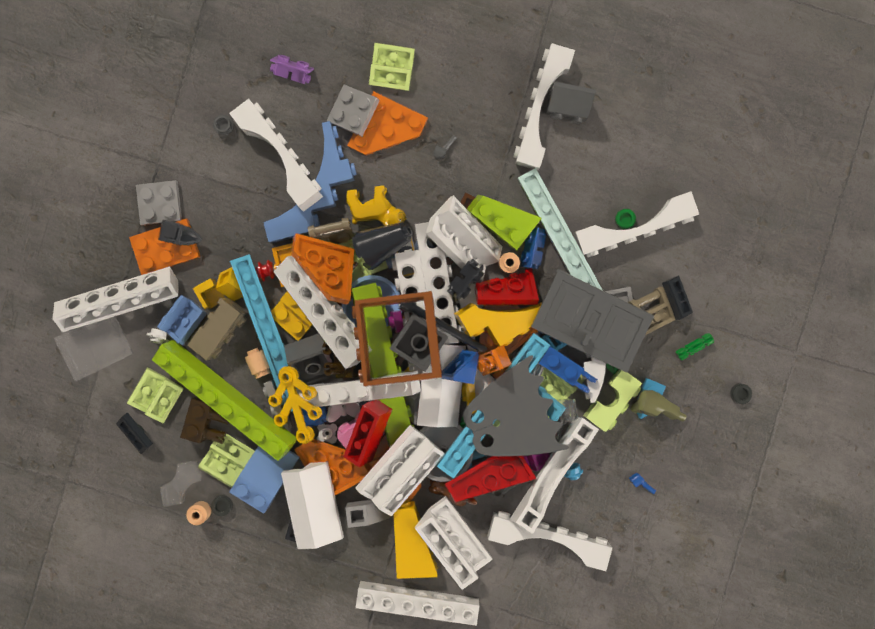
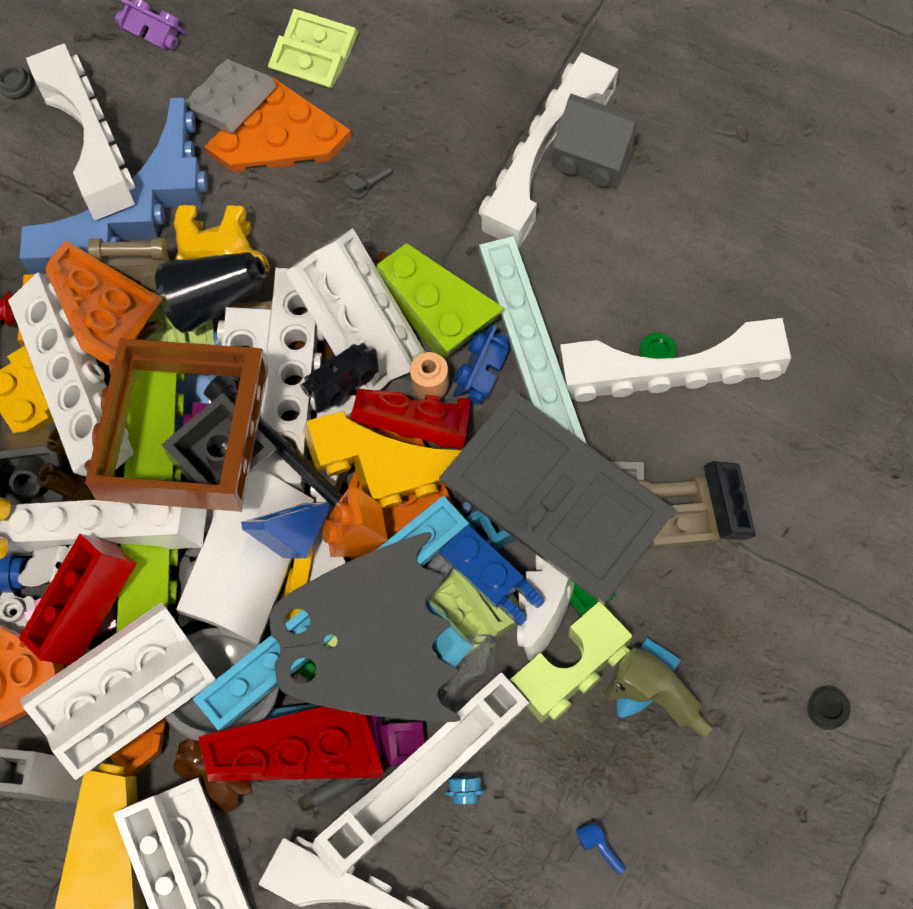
camera: 20 degrees right, 20 degrees down
(695, 346) = (749, 598): green axle -> none

